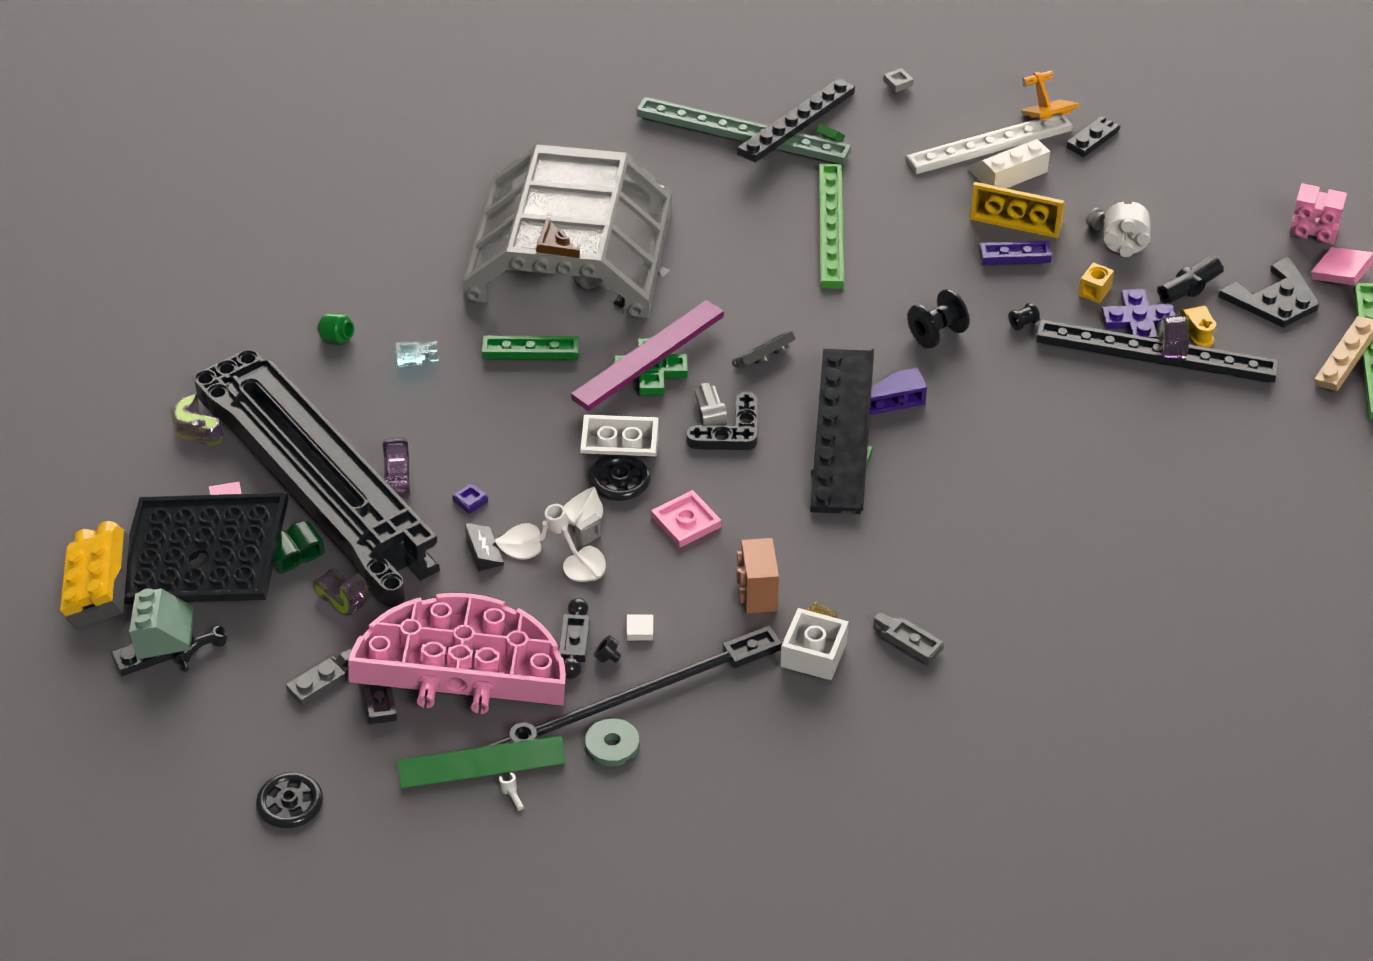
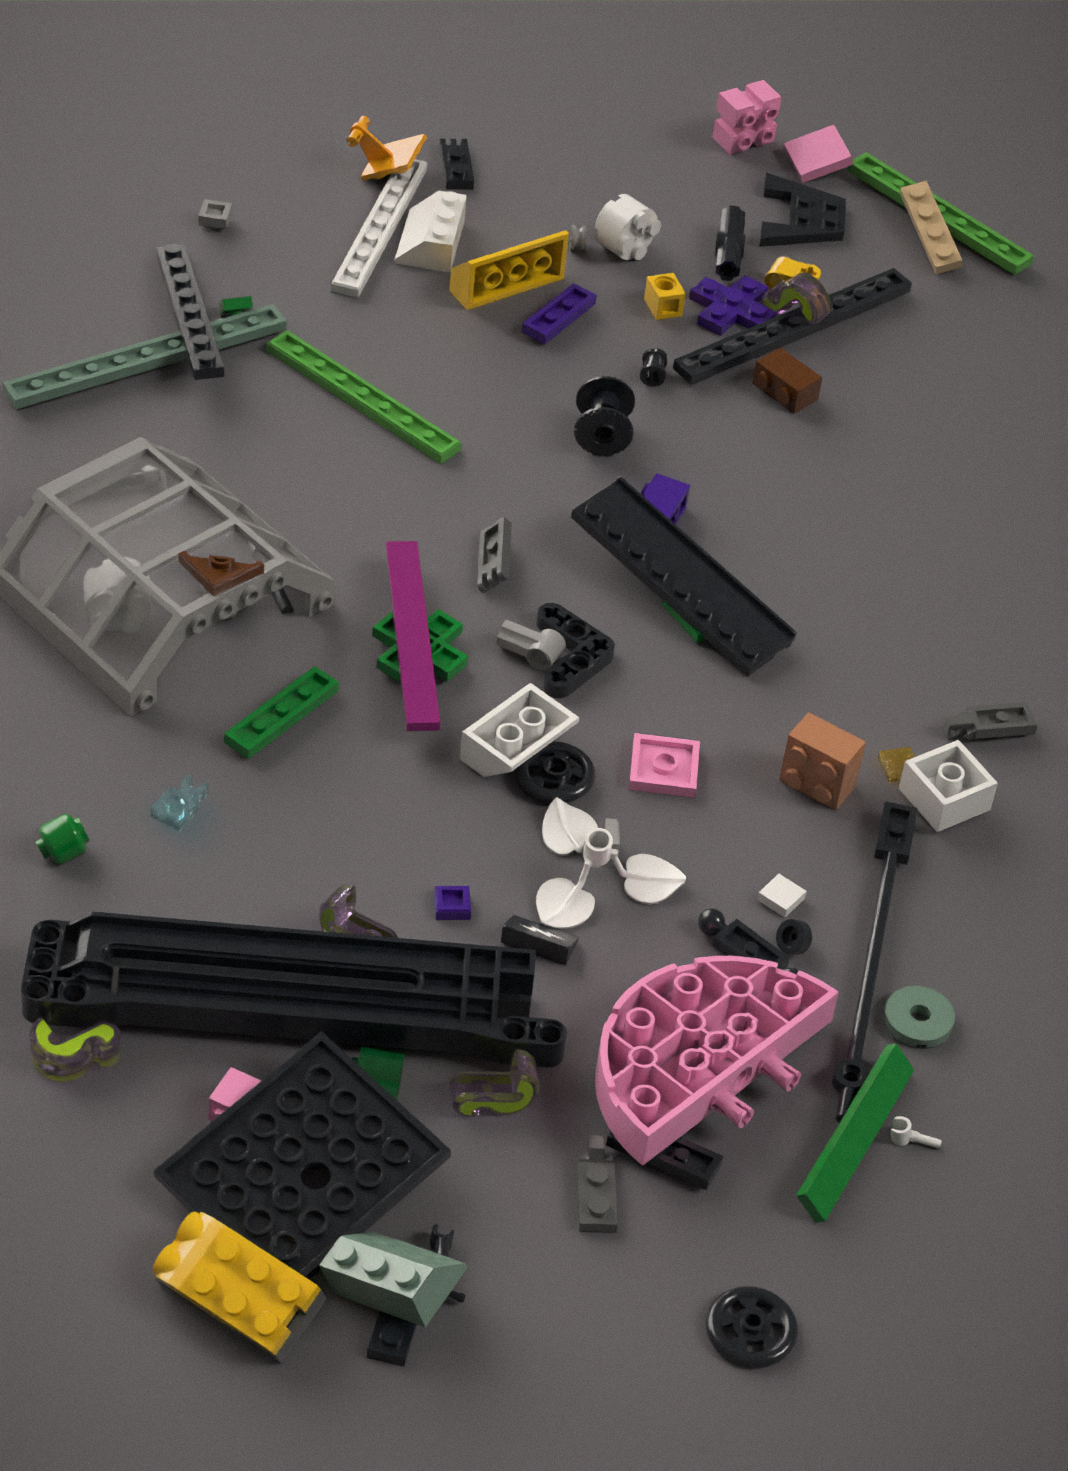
camera: 55 degrees left, 0 degrees up
(1095, 376) = (787, 380): none -> reddish brown brick

